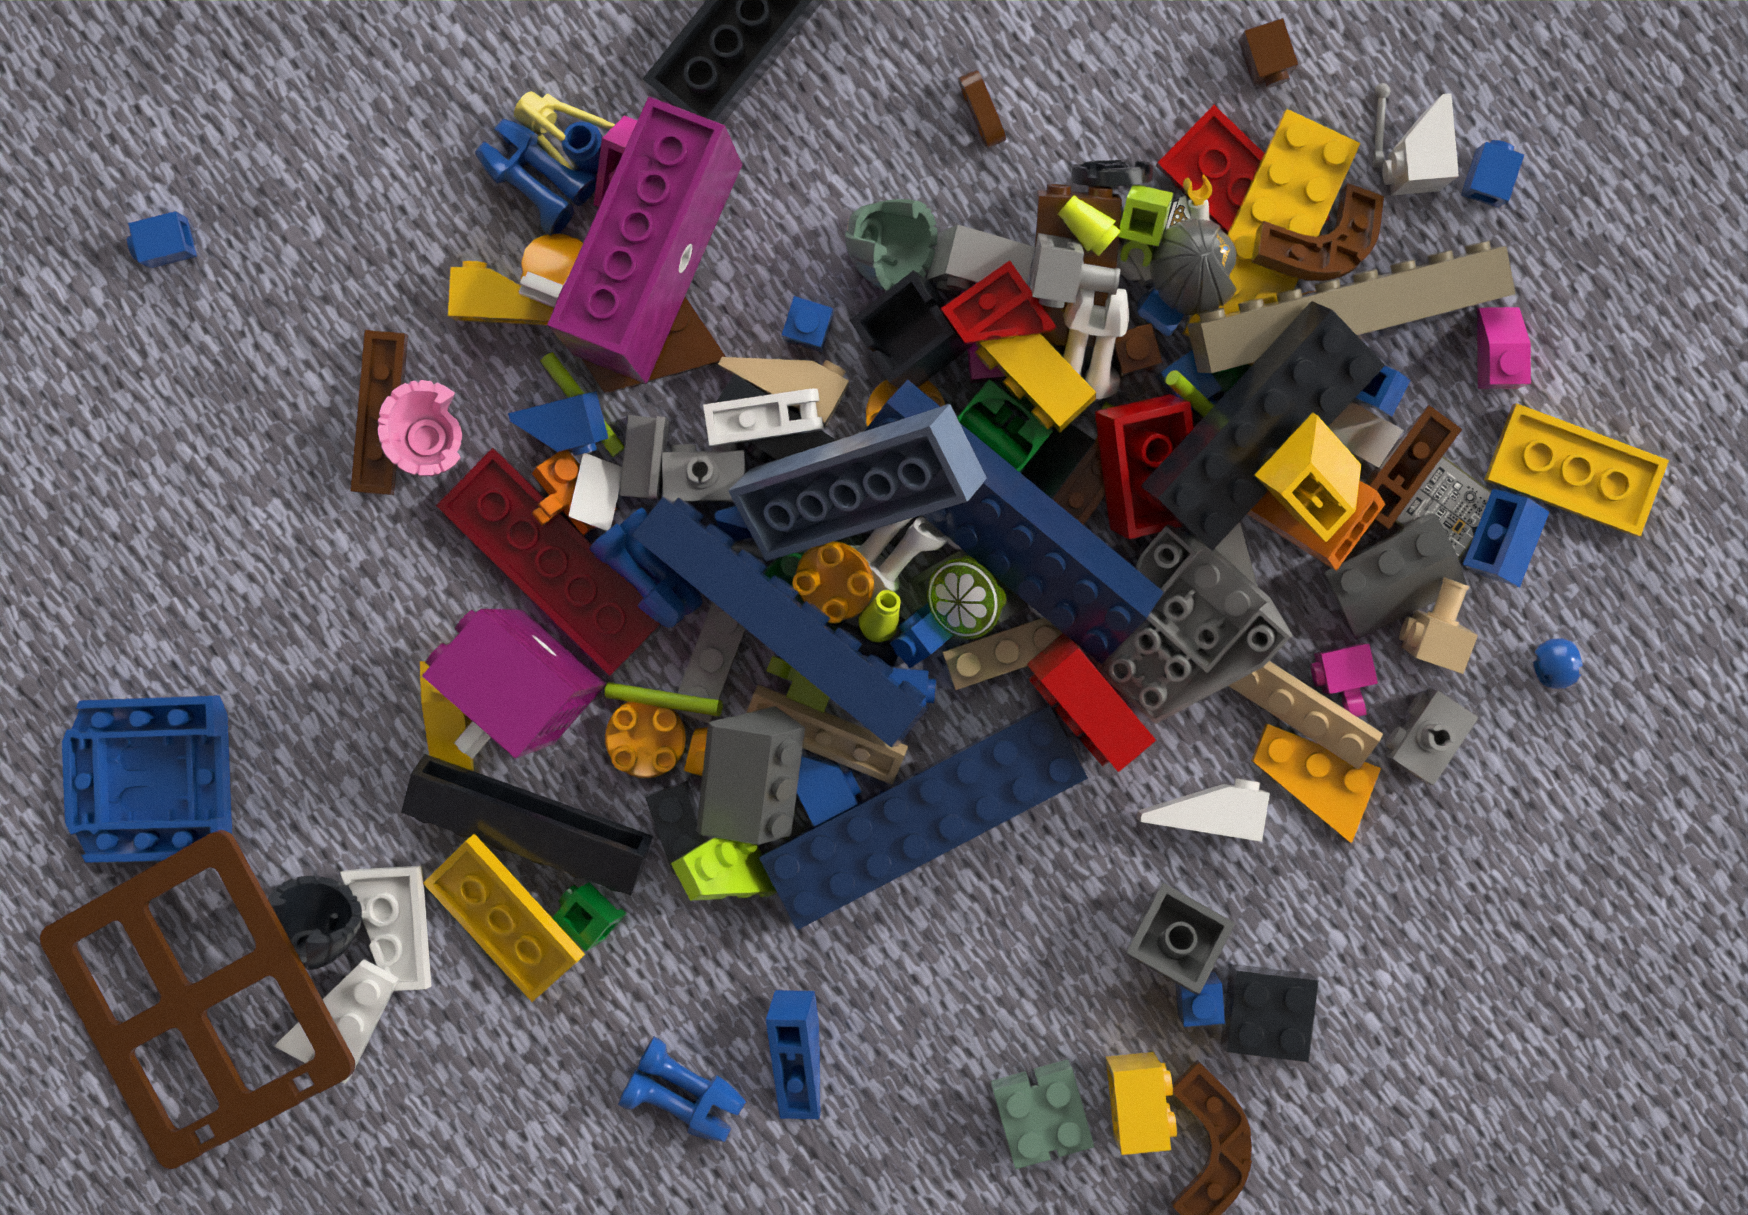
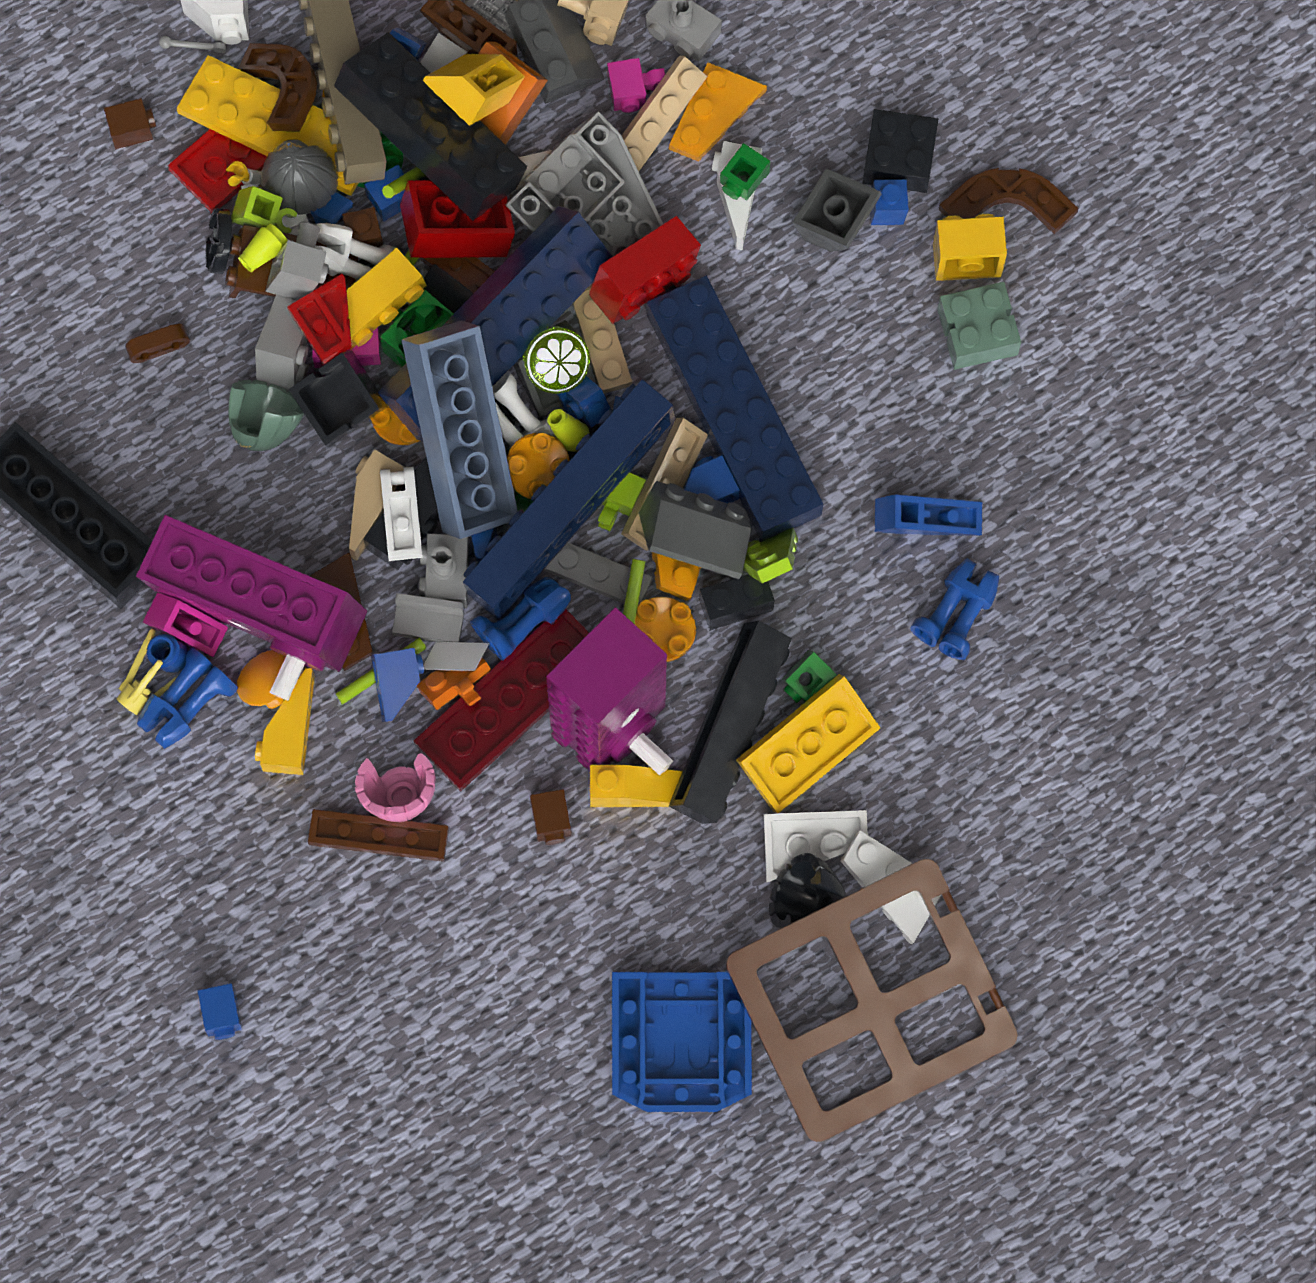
camera: 90 degrees left, 15 degrees down
(406, 615) = (550, 816): none -> reddish brown brick
(807, 324) = (325, 483): blue brick -> none
(1234, 828) = (744, 163): none -> green brick

